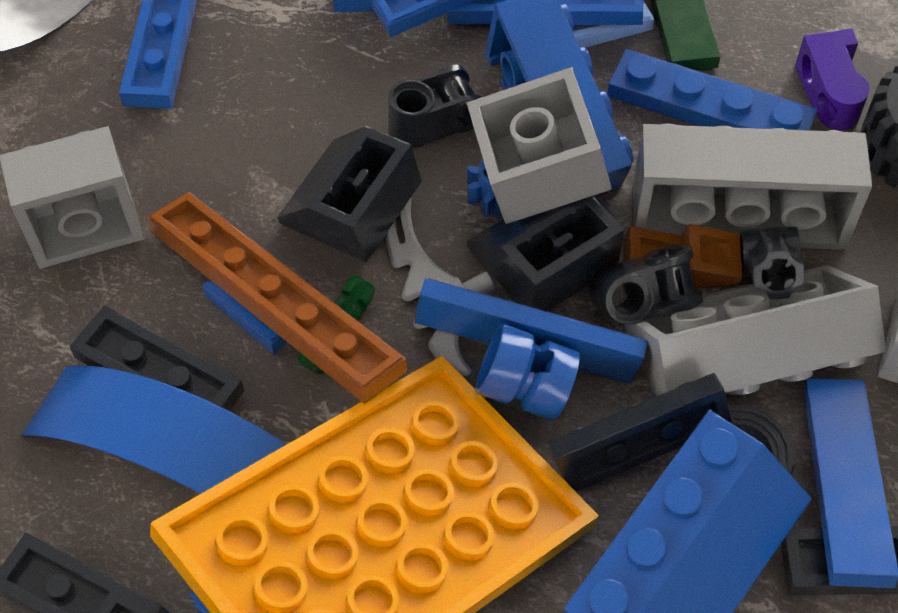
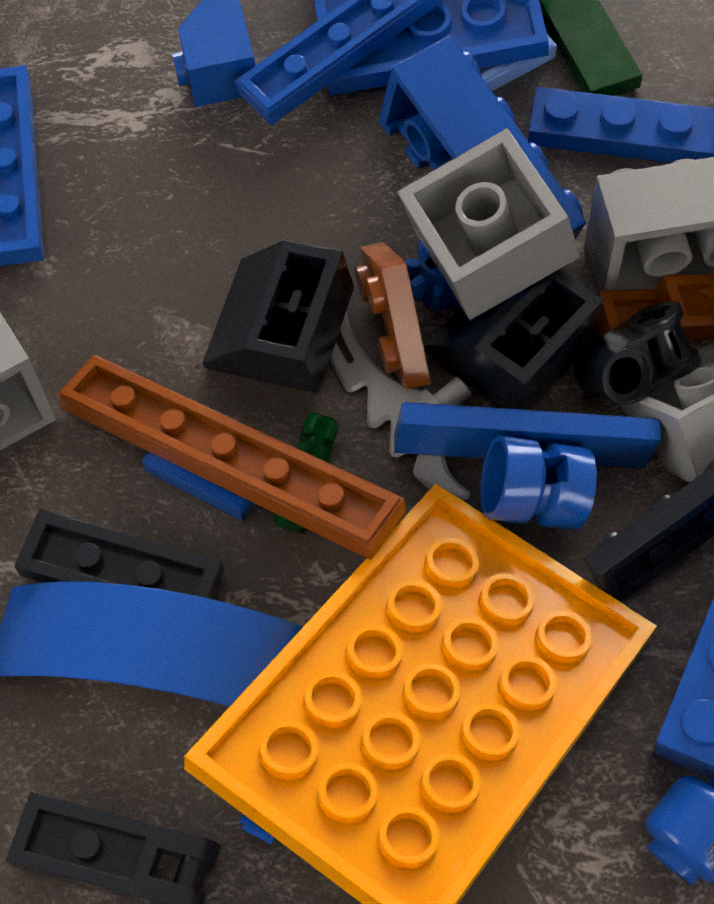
camera: 10 degrees left, 5 degrees up
(431, 106) = (343, 198): black piece -> none
(443, 189) = (388, 289): none -> dark orange plate

